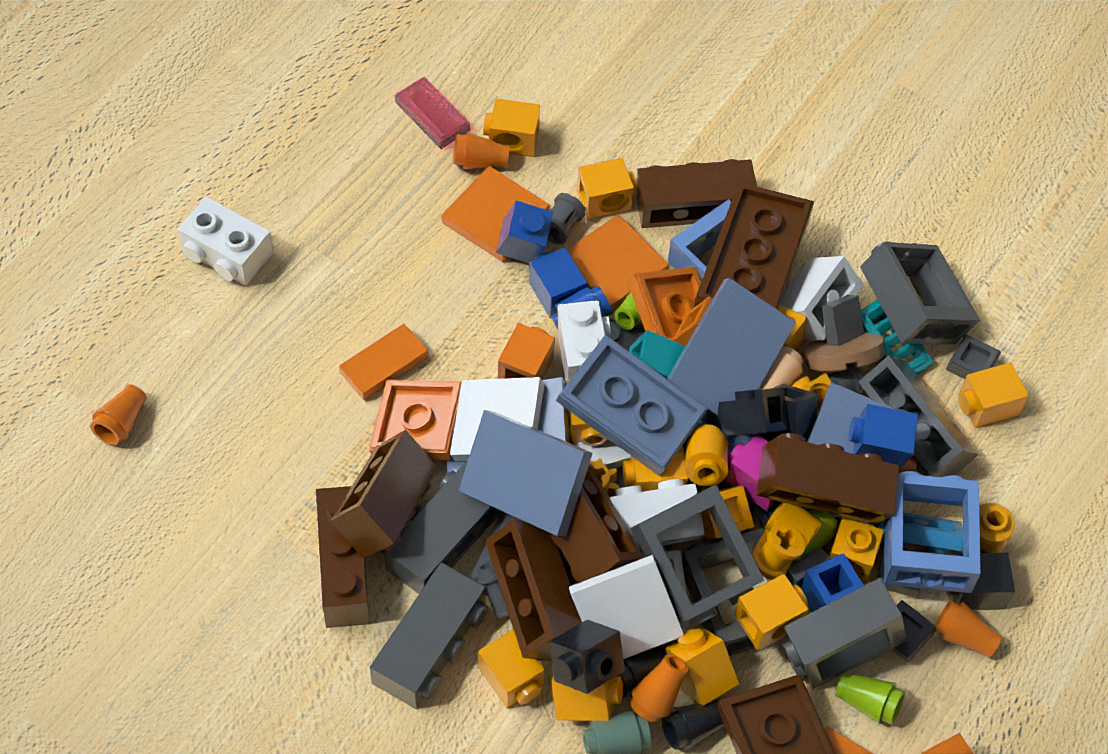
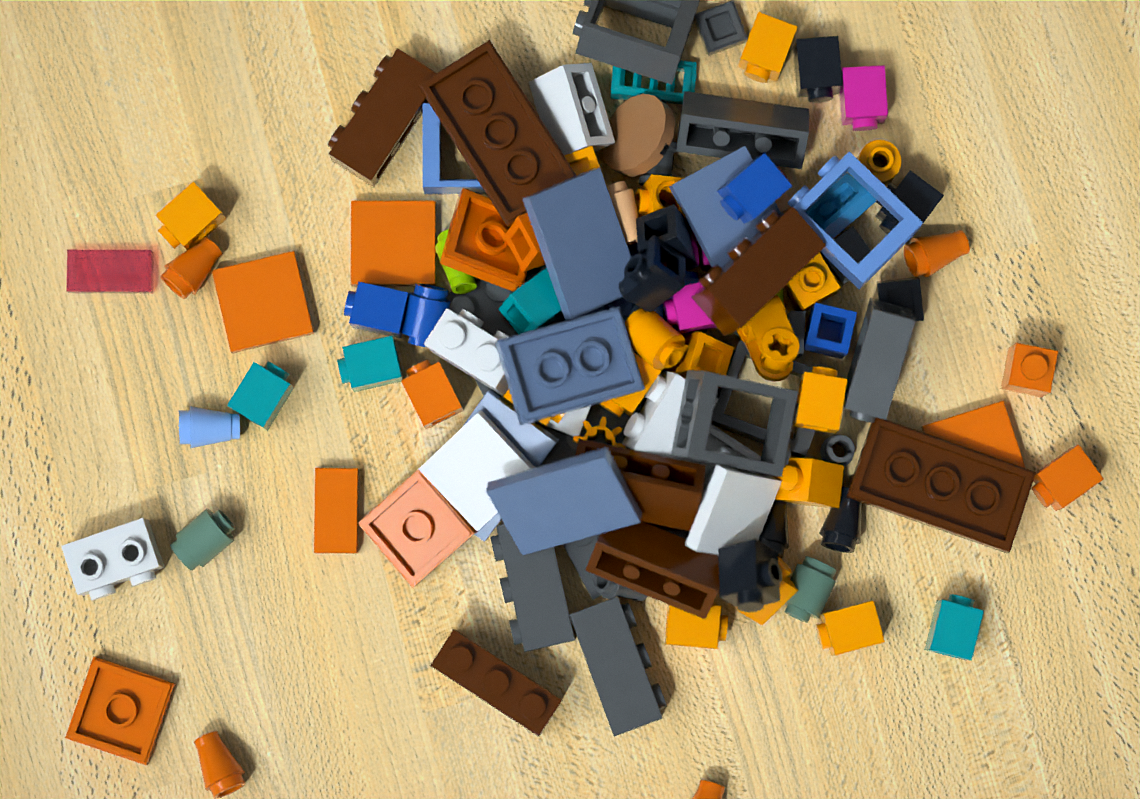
camera: 50 degrees left, 25 degrees up
(112, 327) = (120, 710): none -> orange tile
(287, 288) = (203, 538): none -> sand green brick
(373, 236) = (207, 426): none -> light blue cone
(385, 495) = (479, 615): reddish brown brick -> none
(427, 252) = (261, 394): none -> teal brick
(512, 302) = (370, 364): none -> teal brick
(524, 232) = (315, 302): blue brick -> none
(564, 217) = (317, 253): dark grey bush -> none
(606, 188) = (318, 189): light orange brick -> none
(658, 691) = (806, 536): orange cone -> none
(749, 670) = (827, 452): none -> dark grey pin
(842, 320) = (612, 113): dark grey tile -> none
(871, 696) = (929, 372): lime cone -> none
(1014, 439) = (817, 68): none -> black brick
(1027, 485) = (863, 97): none -> dark pink brick

